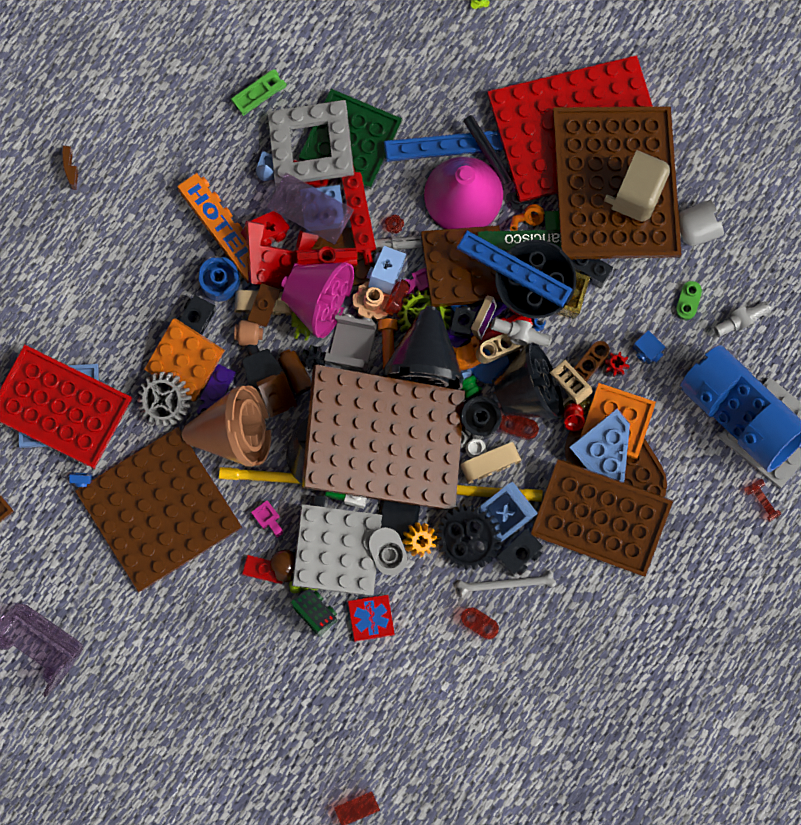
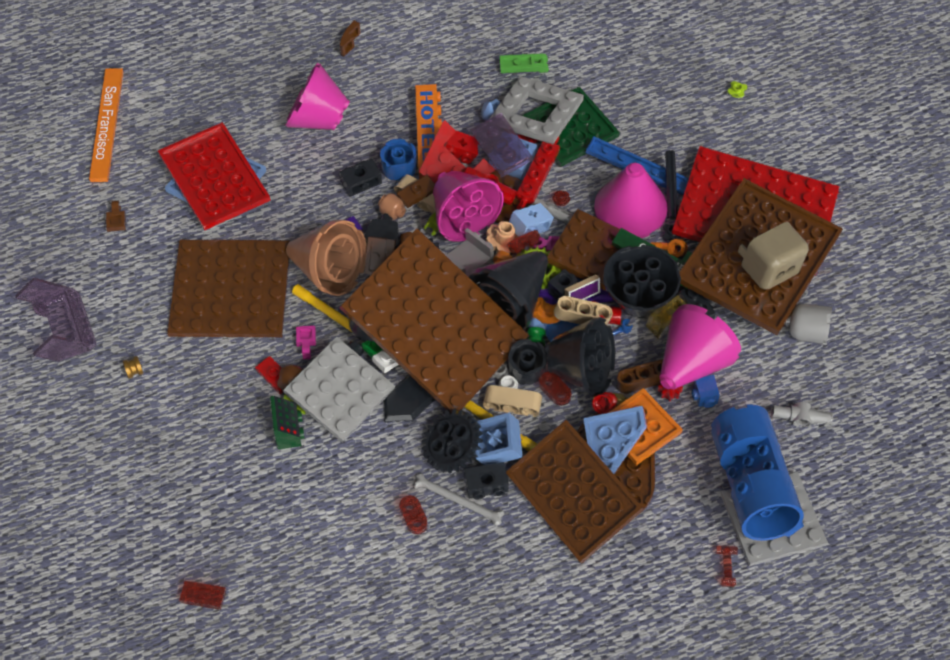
camera: 35 degrees right, 20 degrees down
(80, 479) = (189, 233): blue plate -> none
(98, 268) = (319, 103): none -> dark pink cone
(134, 645) = (133, 367): none -> pearl gold wheel
(169, 404) = (290, 210): light grey gear -> none
(187, 356) = (330, 196): orange plate -> none
(371, 618) = (329, 459): red tile -> none
(388, 551) = (378, 411): light grey piece -> none
(425, 543) = (418, 419): light orange gear -> none
(514, 269) = (629, 260): blue tile -> none
(521, 332) = (601, 305): light grey pin -> none
(583, 386) = (625, 385): tan slope -> none
(622, 322) = (696, 347): none -> dark pink cone
(689, 299) = (766, 377): bright green plate -> none

